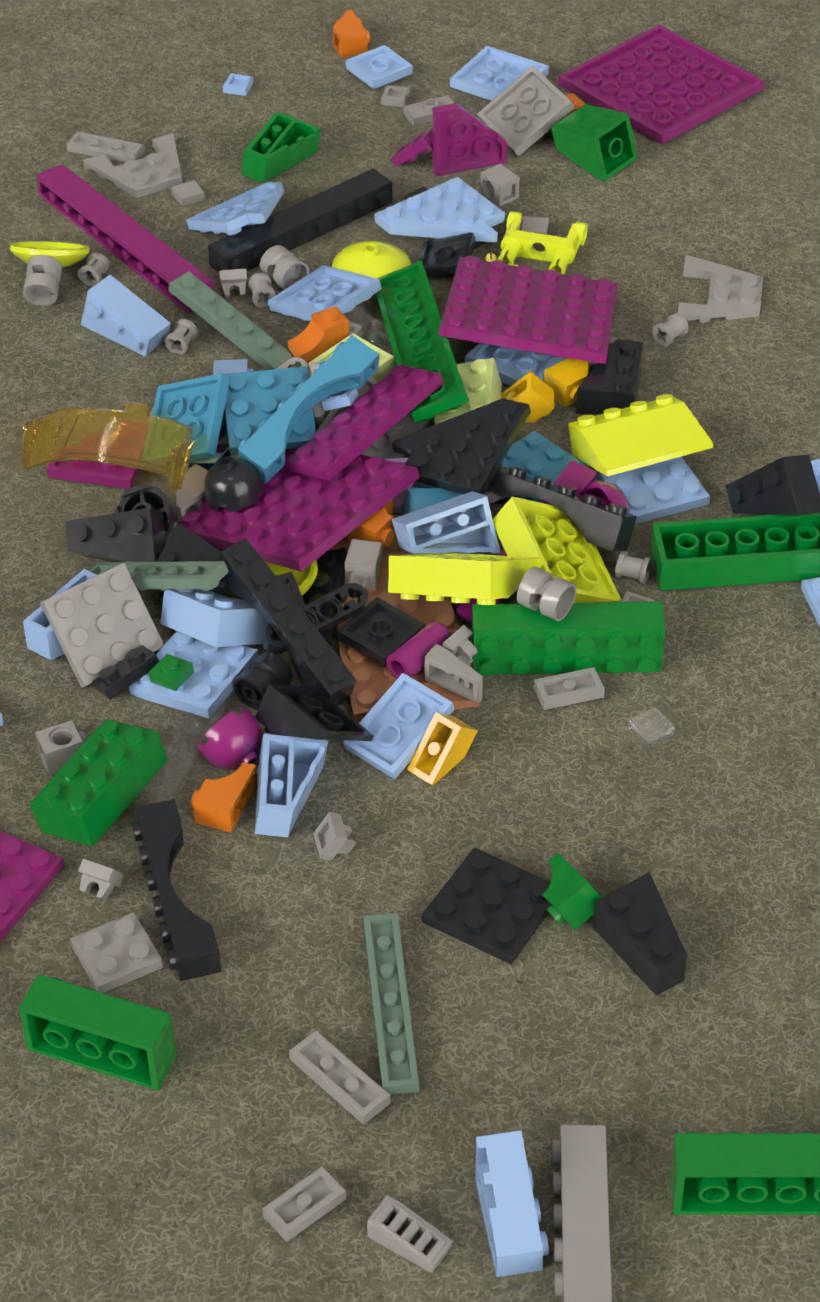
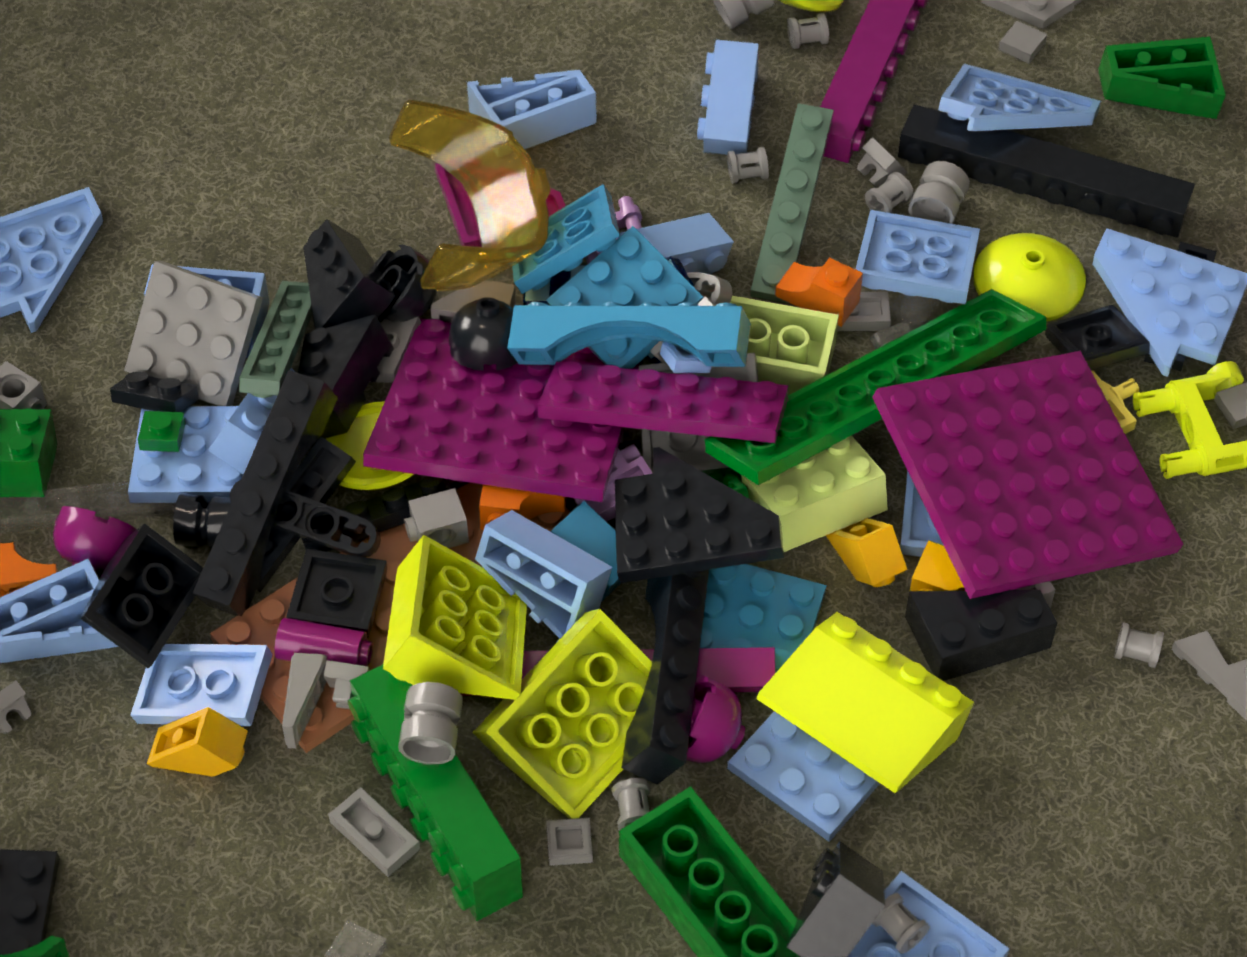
camera: 60 degrees right, 10 degrees up
(48, 391) = (538, 107): none -> light blue wedge

